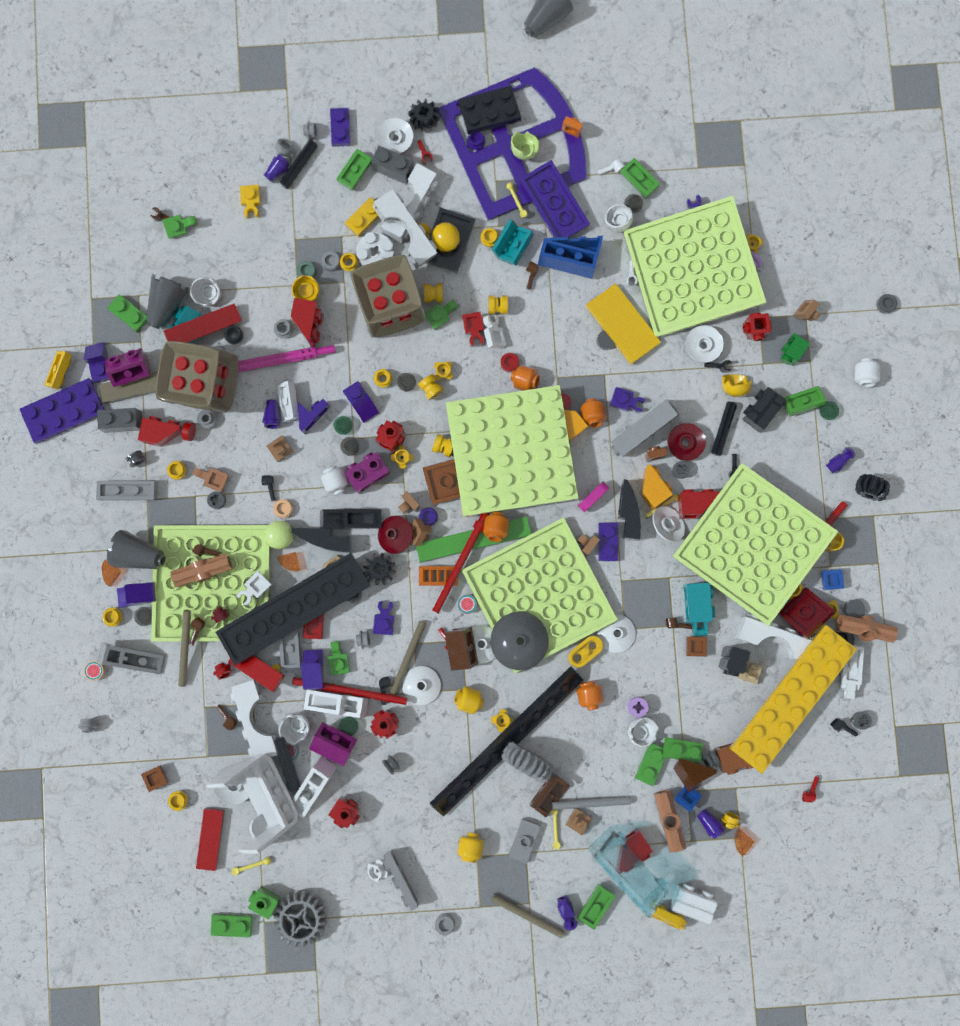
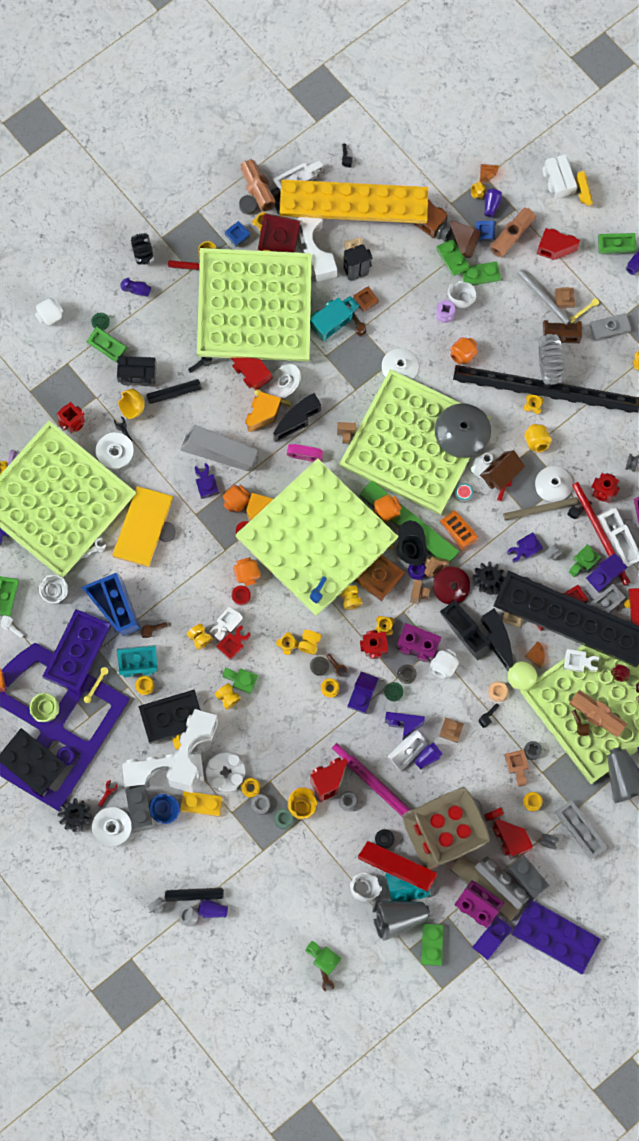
camera: 125 degrees left, 10 degrees down
(57, 371) = (525, 965): yellow plate -> none
(130, 398) = (502, 882): none -> light grey plate
(250, 197) = (253, 914): yellow plate -> none
(340, 127) = (134, 883): dark purple plate -> none
(348, 725) = (628, 515): clear green plate -> none
(354, 169) = (165, 840): bright green plate -> none
(379, 183) = (164, 808): none -> blue hair
(388, 296) = (261, 721): dark tan piece -> none
(397, 396) = (336, 665): none -> reddish brown hand
(445, 237) = (172, 717): yellow hair -> none
(451, 525) = (411, 543): none -> black piece
(460, 410) = (315, 595): none -> blue hand
(478, 527) = (396, 522): red bar -> none
(585, 652) = (433, 376): yellow plate -> none
(608, 542) = (328, 421): dark purple plate -> none
(629, 871) = (573, 234): clear light blue windscreen -> none
(634, 202) = (30, 588): clear smoke plate -> none
(655, 453) = (234, 428): dark orange plate -> none
(680, 464) = (227, 404): dark grey bush -> none
(693, 435) = (205, 403): dark red dish -> none
(793, 349) = (69, 378): green brick -> none
(808, 310) = (27, 390): medium nougat tile -> none
(810, 796) = (416, 146): red hand -> none
(859, 715) = (334, 143): dark grey bush -> none

